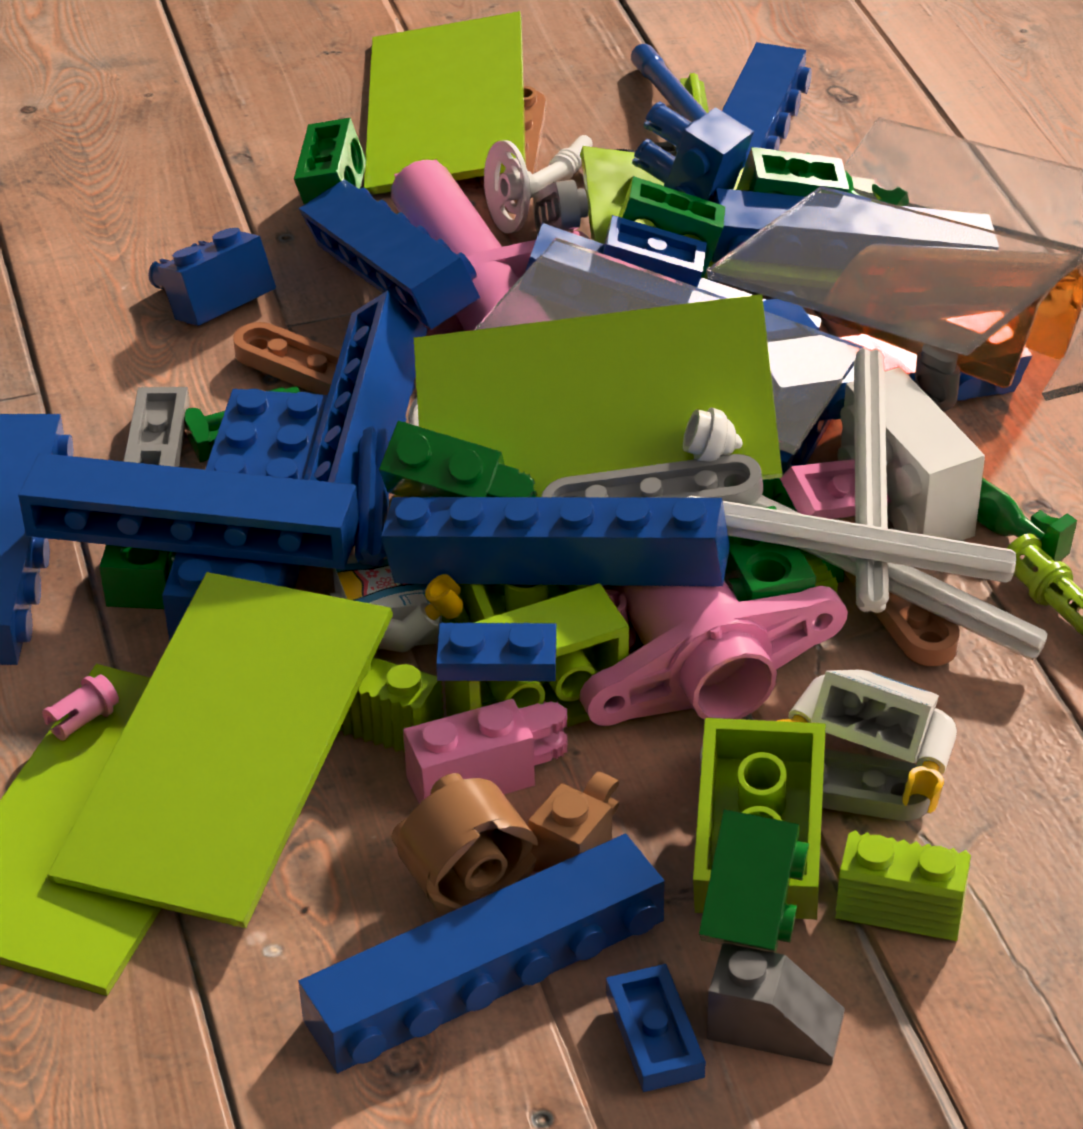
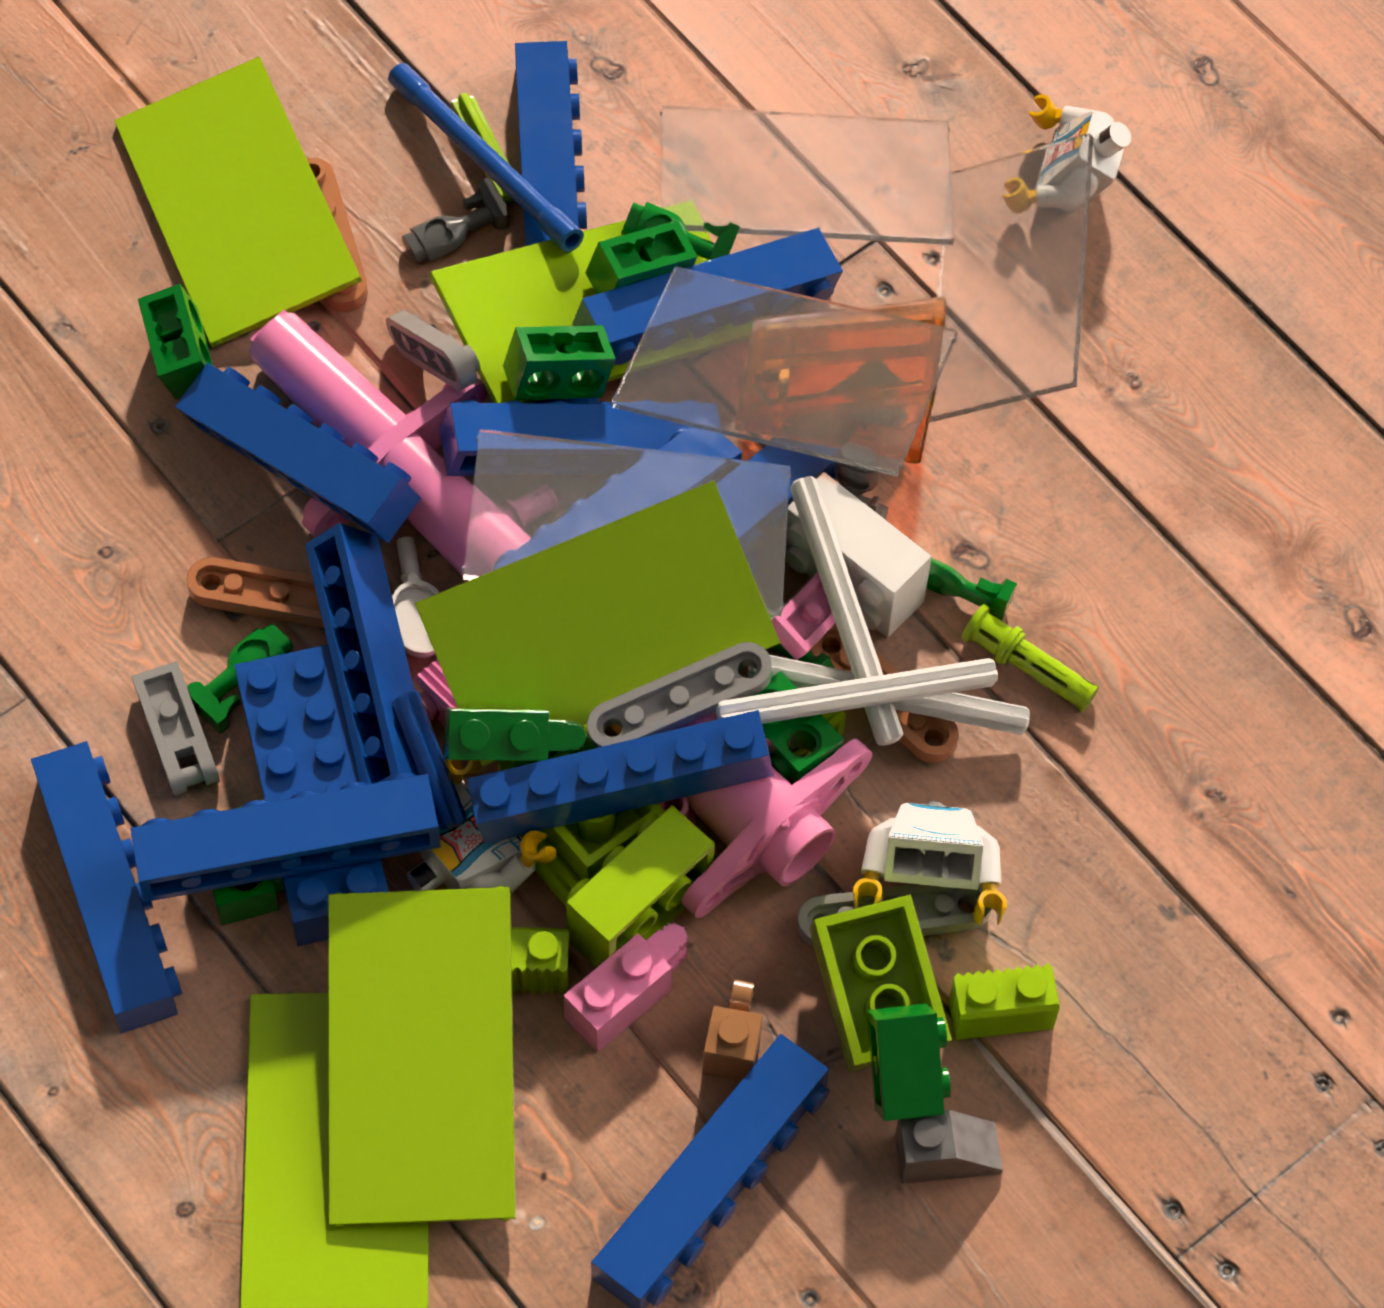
camera: 25 degrees left, 20 degrees up
(83, 705) = (271, 1051): bright pink pin -> none
(214, 276) = (135, 517): blue brick -> none
(464, 842) = (661, 1089): medium nougat brick -> none
(496, 652) = (624, 912): blue plate -> none
(523, 184) = (366, 308): dish -> none
(655, 250) = (561, 401): blue plate -> none
(655, 1028) = (866, 1194): blue plate -> none
(707, 151) = (549, 274): blue brick -> none
(710, 435) = (713, 633): white plate -> none

